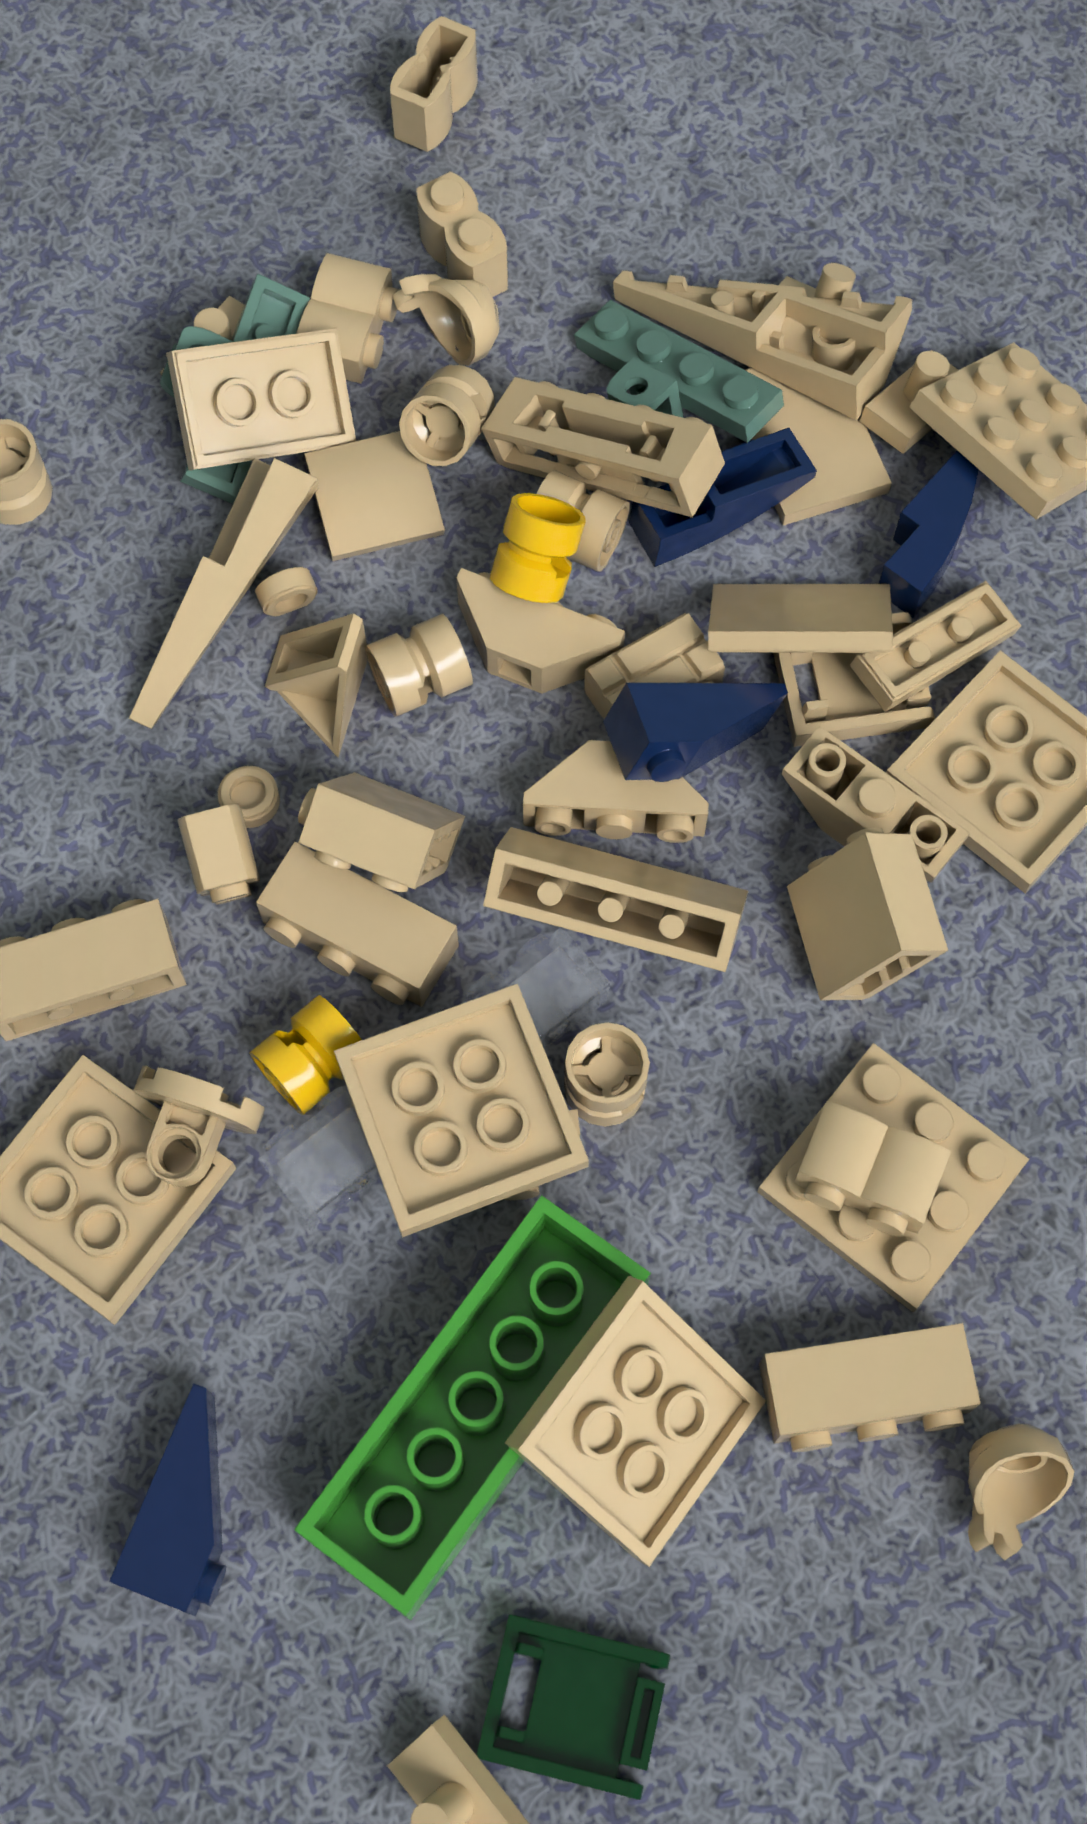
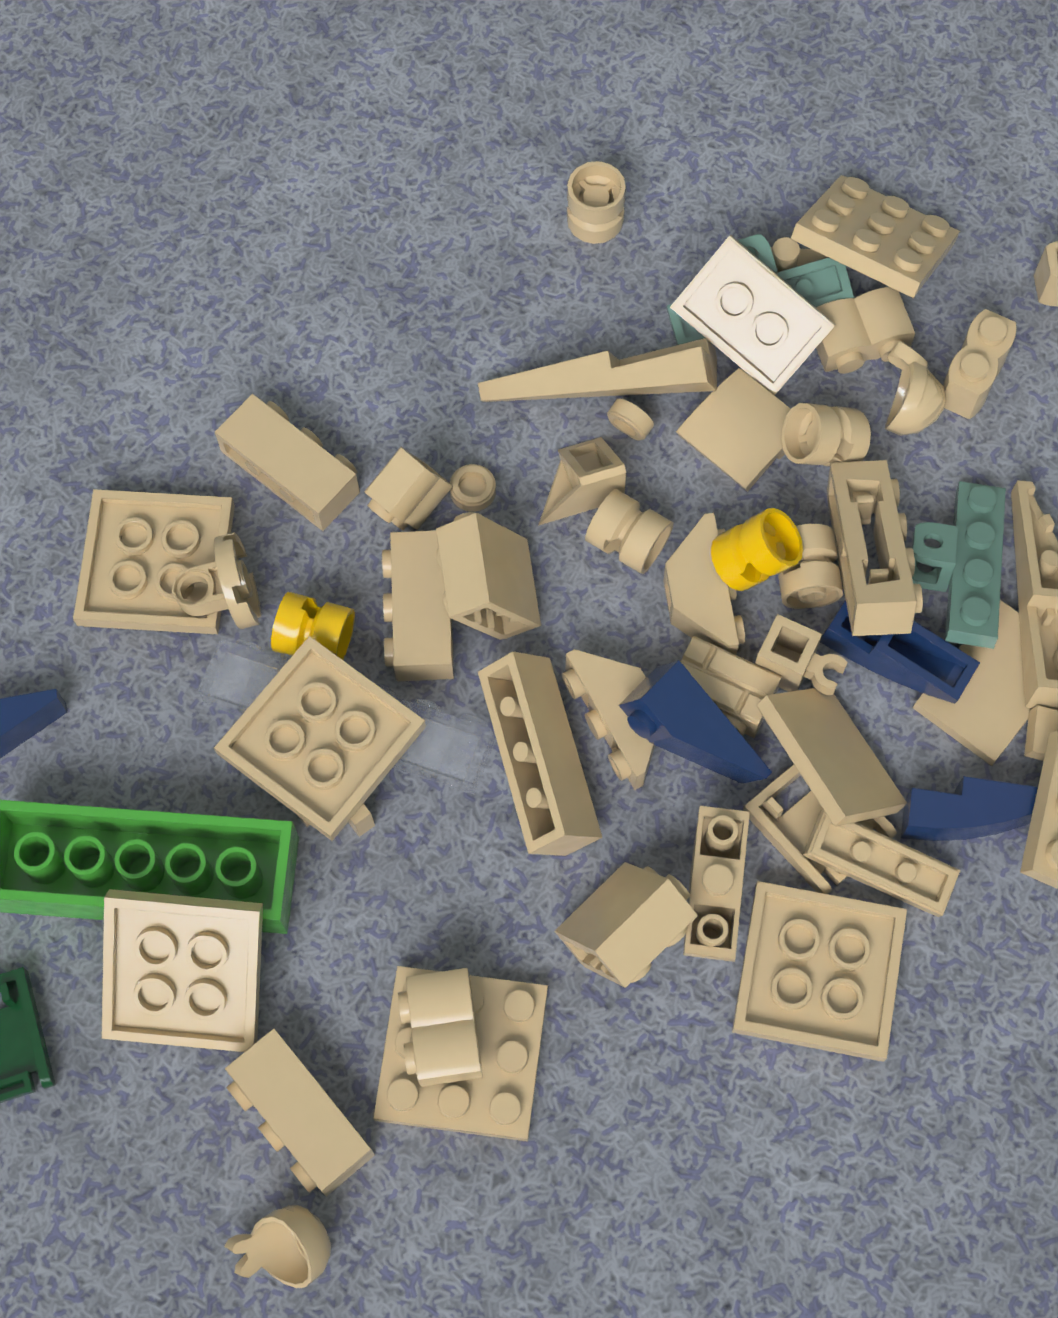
camera: 60 degrees right, 0 degrees up
(255, 235) = (876, 235): none -> tan plate
(606, 1074) = (410, 819): tan wheel -> none
(669, 586) = (792, 654): none -> tan brick

